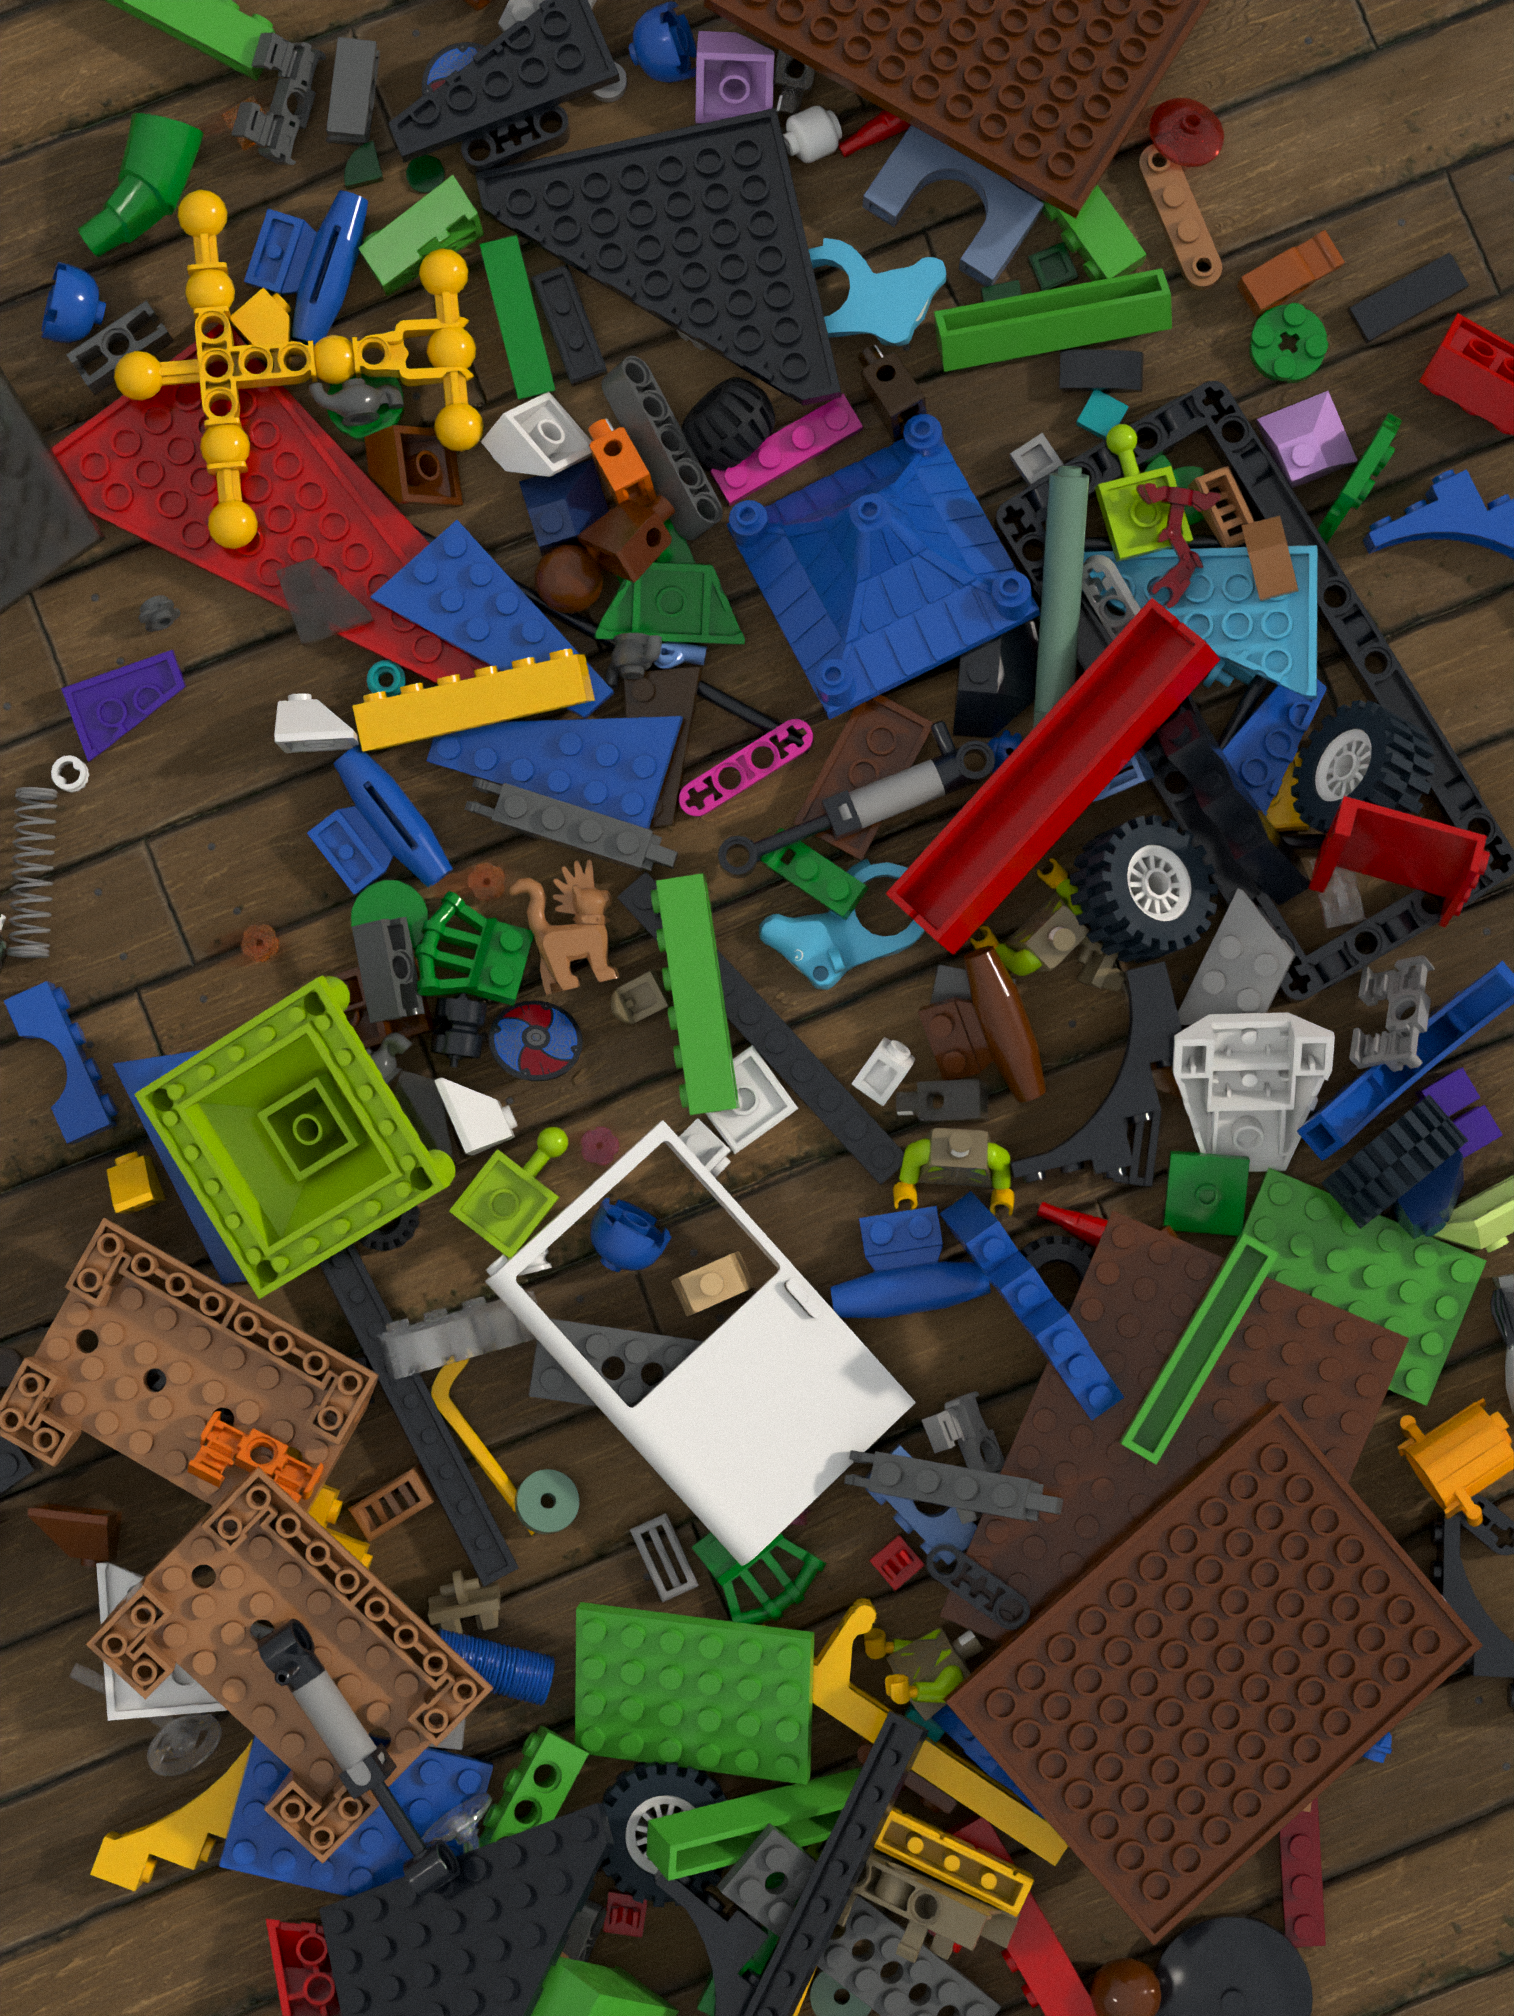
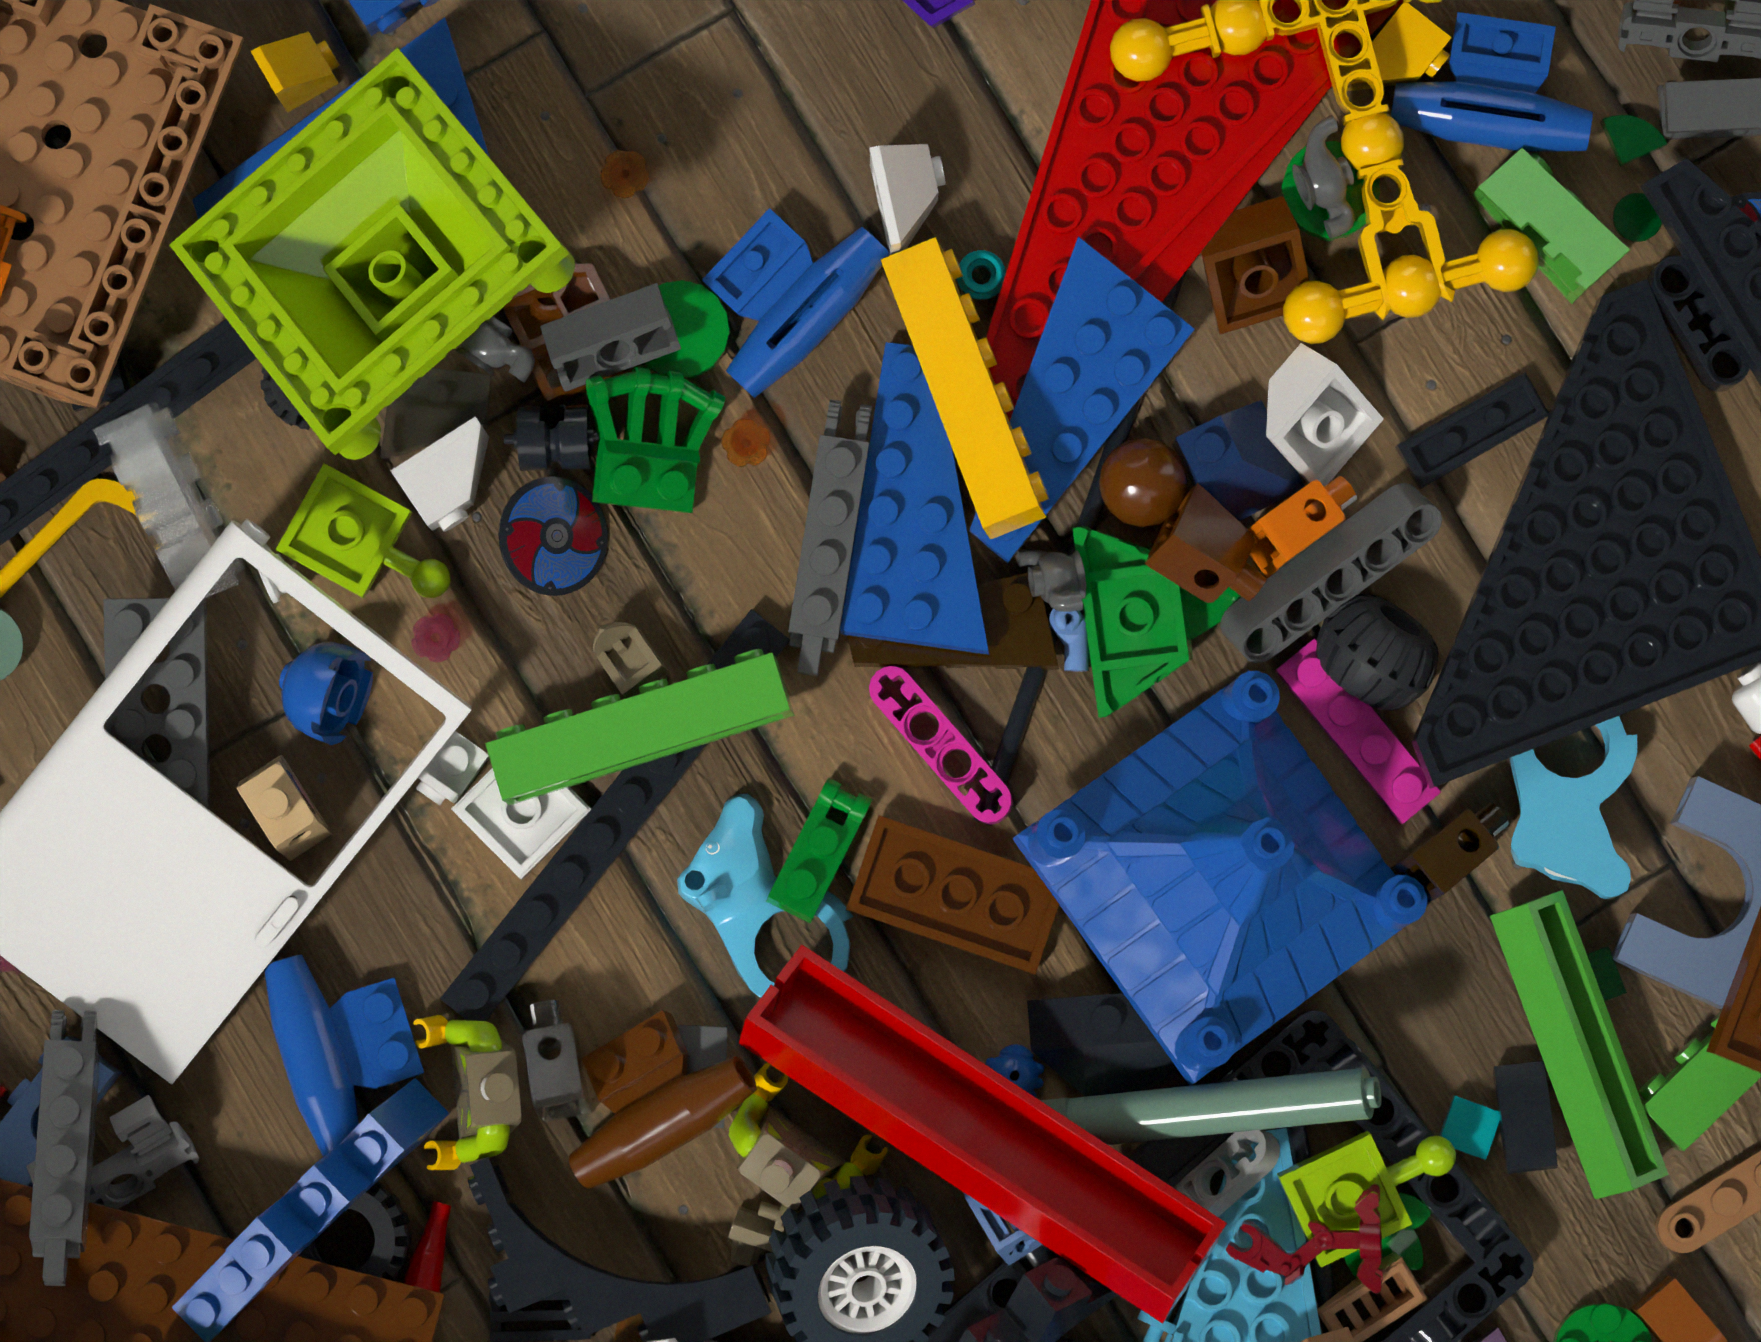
camera: 80 degrees right, 0 degrees up
(319, 602) = (1062, 174): clear smoke wing -> none
(517, 316) = (1470, 362): green slope -> none
(571, 942) = (685, 563): medium nougat animal -> none
(874, 802) = (921, 913): black piece -> none
(884, 1070) = (585, 980): white bracket -> none
(1035, 459) = (1396, 1051): light grey plate -> none
(1052, 267) = (1650, 1034): dark green tile -> none

